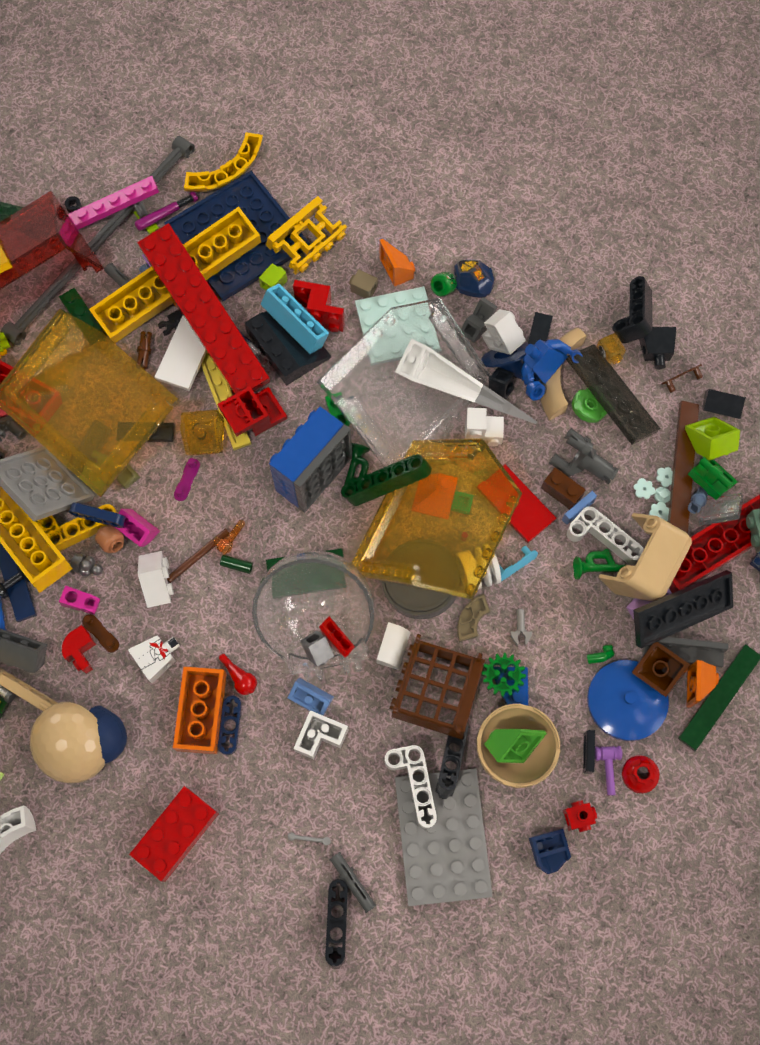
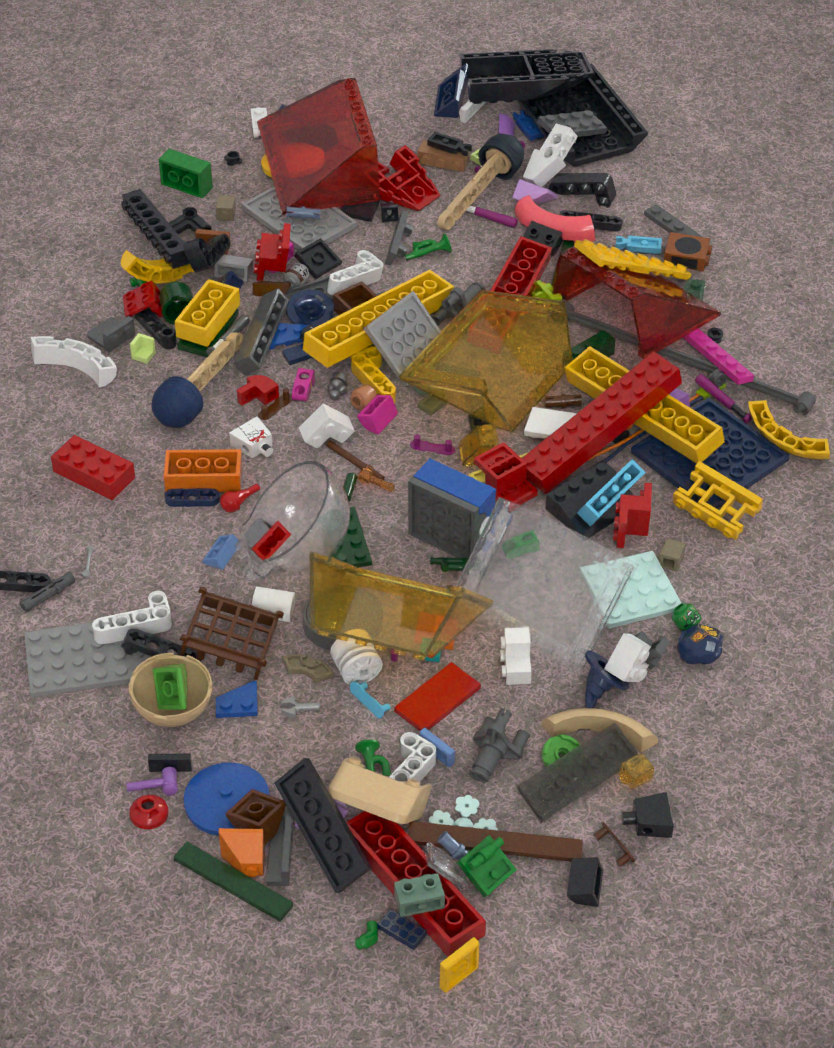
camera: 85 degrees right, 25 degrees down
(67, 743) = (163, 375): tan piece -> none
(97, 515) = (380, 378): dark blue beam -> none
(272, 276) = (663, 483): lime brick -> none
(319, 729) = (183, 552): white brick -> none
(386, 480) = (439, 571): dark green beam -> none
(395, 263) = (699, 573): orange slope -> none
(433, 370) = (571, 608): white plate -> none
(492, 674) = (252, 684): green gear -> none
(502, 382) = (572, 670): black brick -> none
(540, 328) = (641, 708): black tile -> none
(543, 361) = (597, 692): blue torso -> none
(550, 850) = (71, 733): dark blue slope -> none
(563, 488) = (458, 728): reddish brown brick -> none
(573, 819) = (104, 753): red brick -> none
(602, 656) = (270, 771): green arm -> none
(639, 321) = (688, 787): black beam -> none
(713, 437) = (536, 864): lime slope -> none

